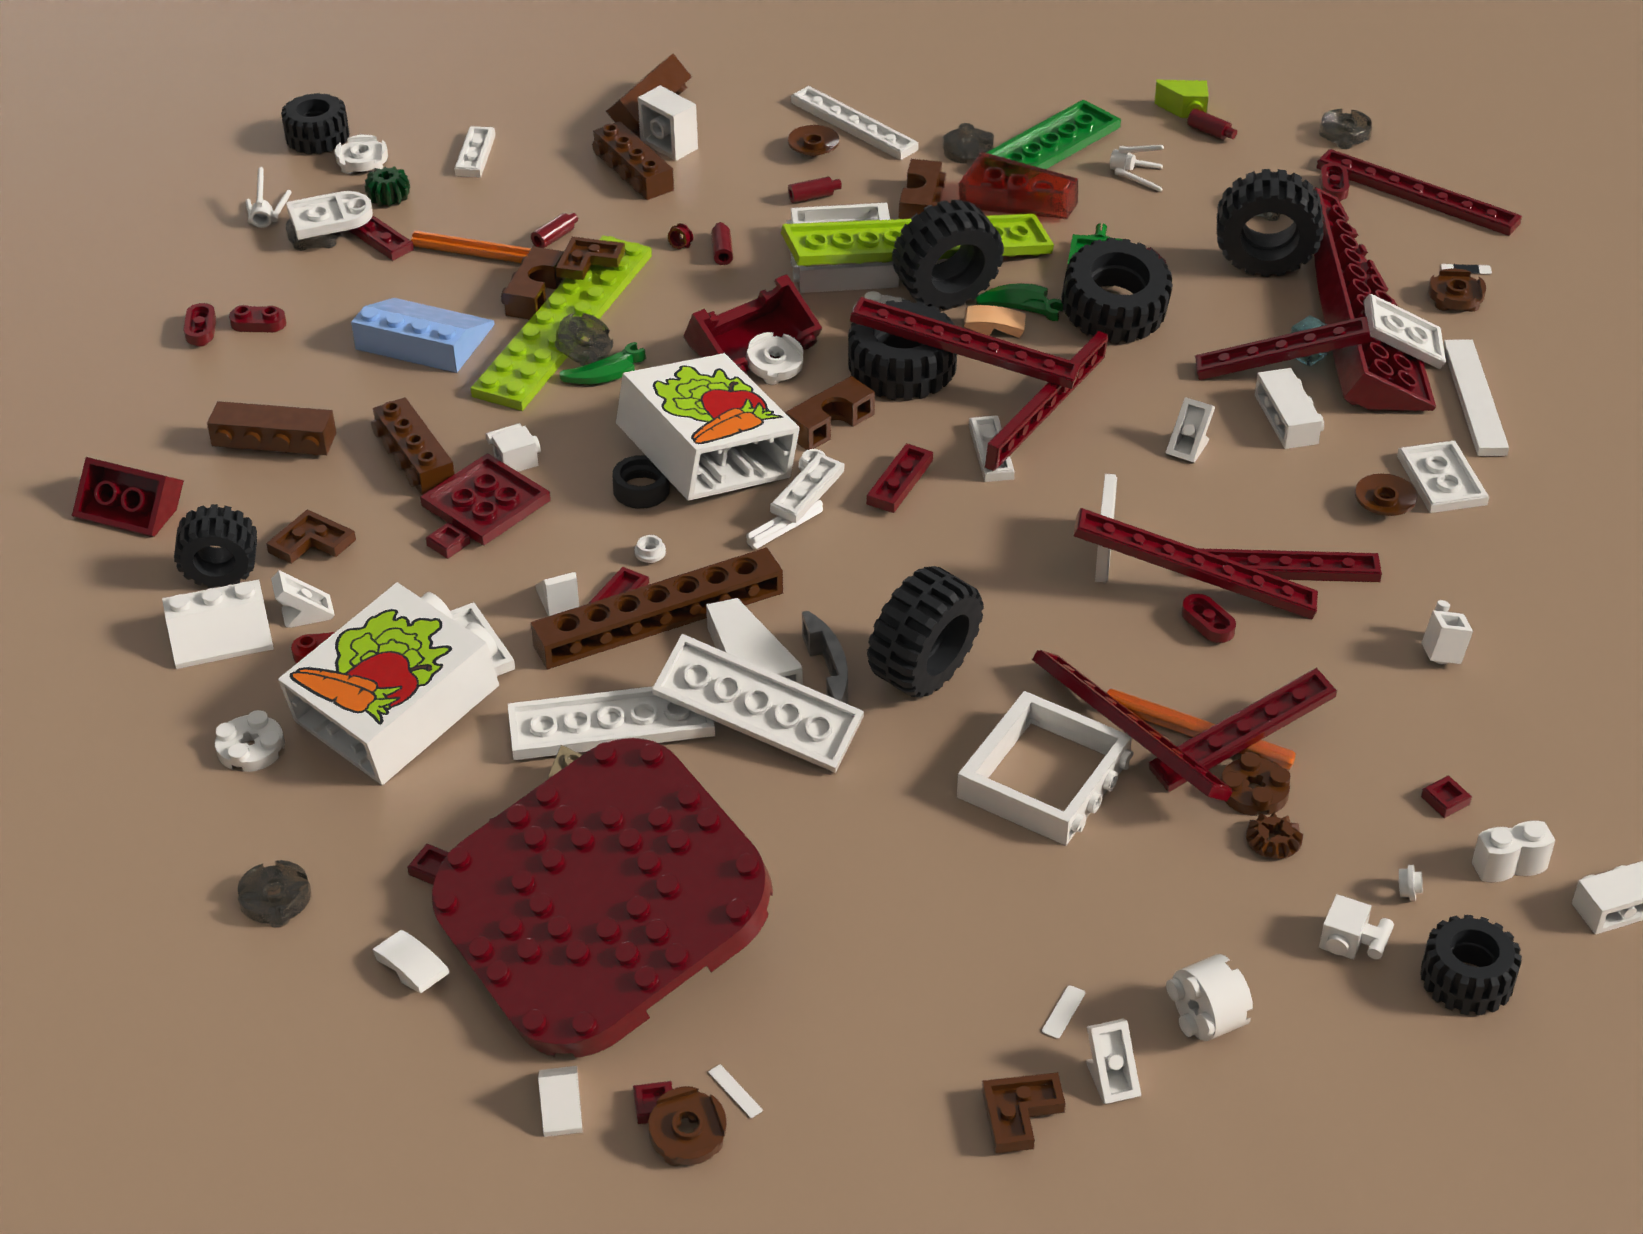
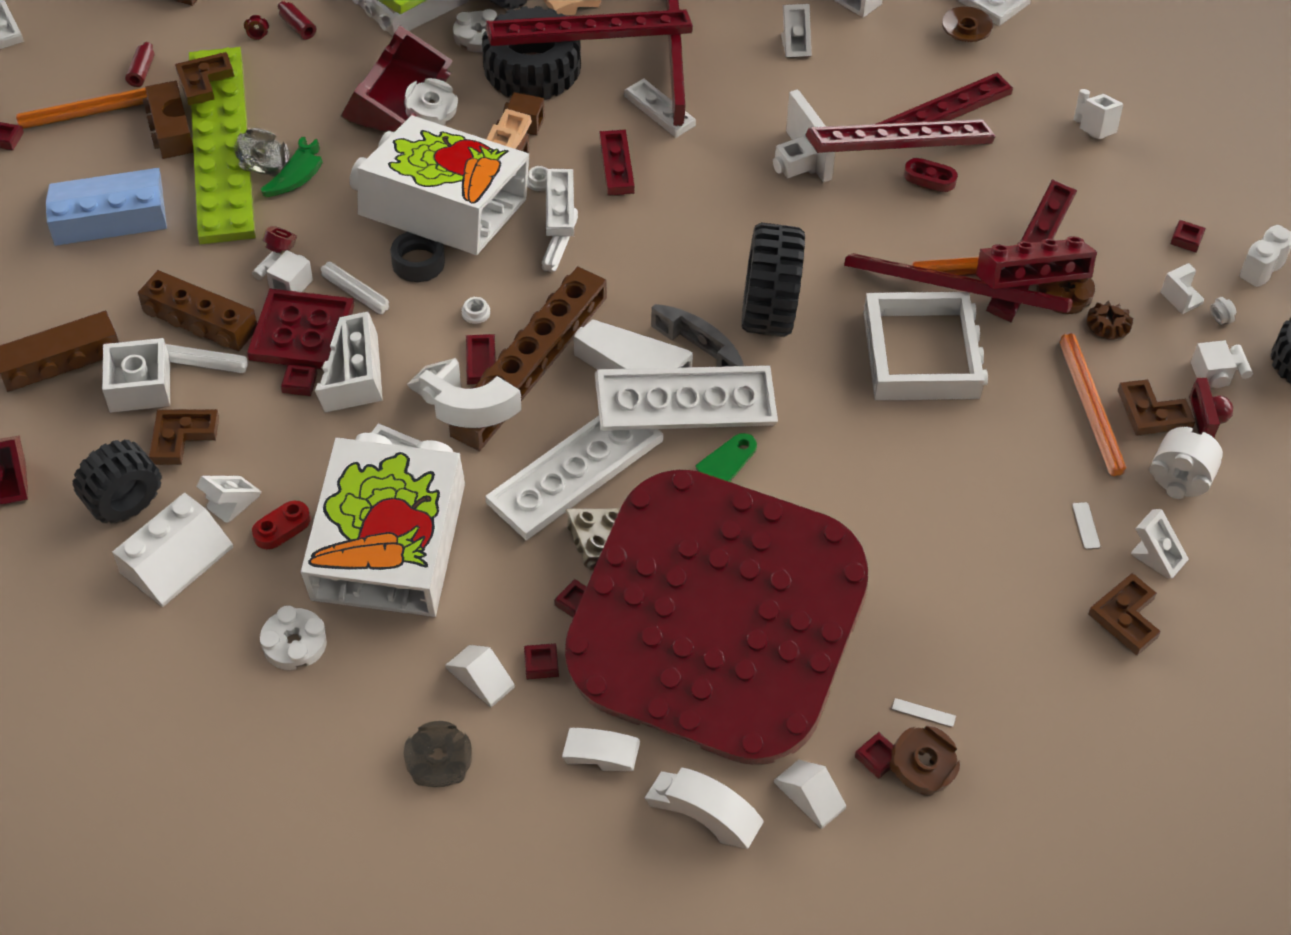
camera: 35 degrees left, 10 degrees up
(313, 473) = (136, 375): none -> white brick
(371, 851) = (481, 673): none -> white slope
(386, 488) = (207, 358): none -> white axle
(451, 1056) = (708, 802): none -> white arch
(497, 545) = (353, 366): none -> white wedge
(530, 415) = (279, 239): none -> dark red plate
(556, 620) = (470, 407): none -> white arch
(564, 485) = (355, 287): none -> white axle
(758, 780) = (729, 458): none -> green piece
(812, 406) = (510, 129): none -> light nougat slope
(1074, 549) = (795, 157): none -> white brick
(1175, 904) = (1092, 405): none -> orange axle
(1220, 736) = (1036, 262): none -> dark red brick
(1228, 936) = (1150, 416): none -> reddish brown plate
(1297, 967) = (1208, 409): none -> dark red tile
(1383, 841) = (1179, 291): none -> white panel

